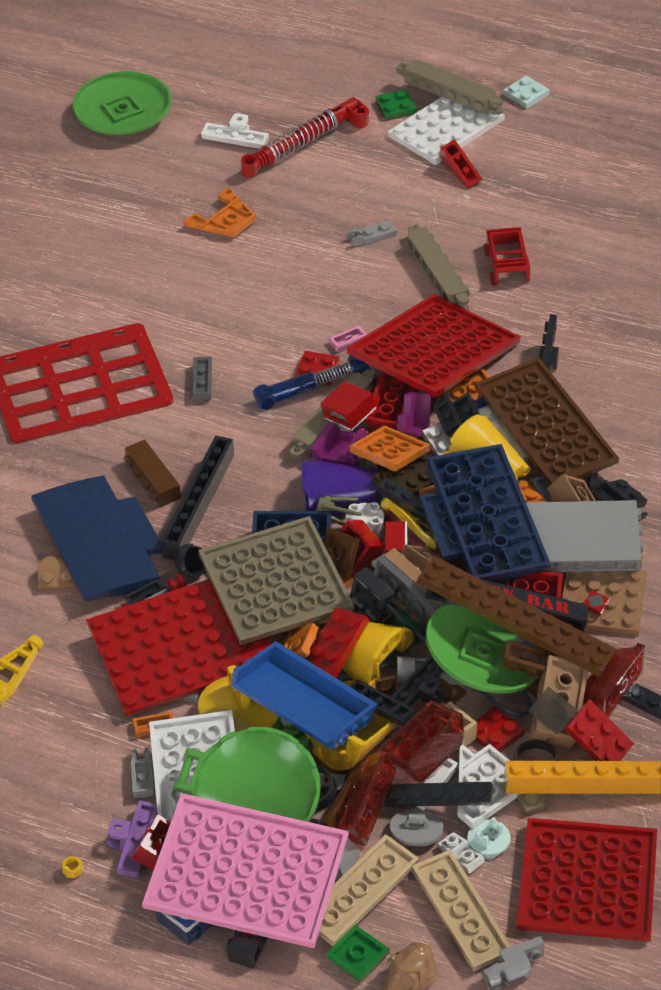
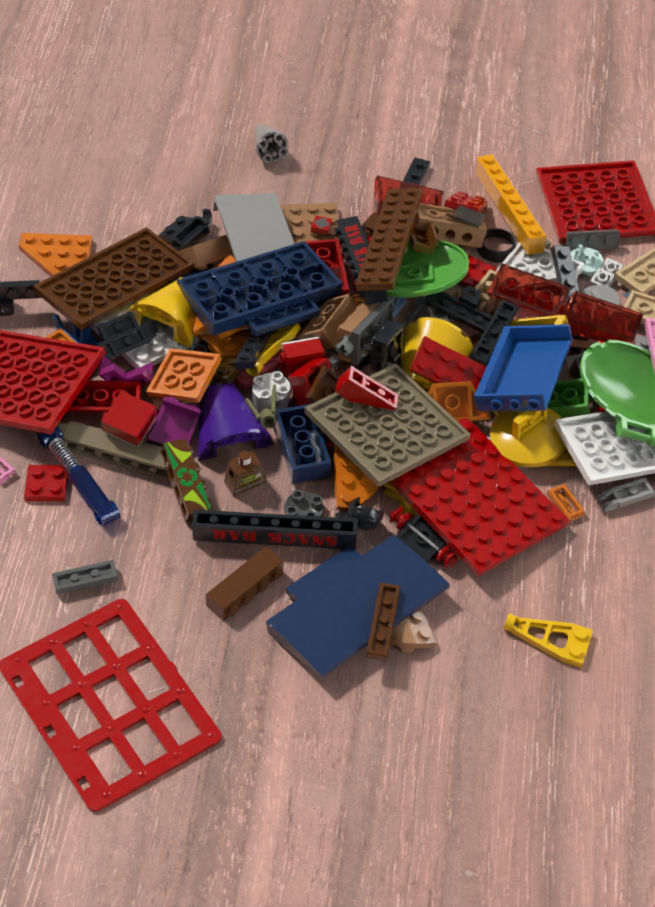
camera: 110 degrees left, 5 degrees up
(63, 542) = (383, 621): none -> reddish brown tile
(222, 527) = (304, 504): none -> dark grey dish
(270, 480) = (244, 473): none -> reddish brown torso
(272, 442) = (185, 478): none -> reddish brown brick
(309, 560) = (364, 390): none -> red slope
(516, 849) = (593, 239): none -> dark grey plate
(615, 405) = (55, 251): none -> orange wing

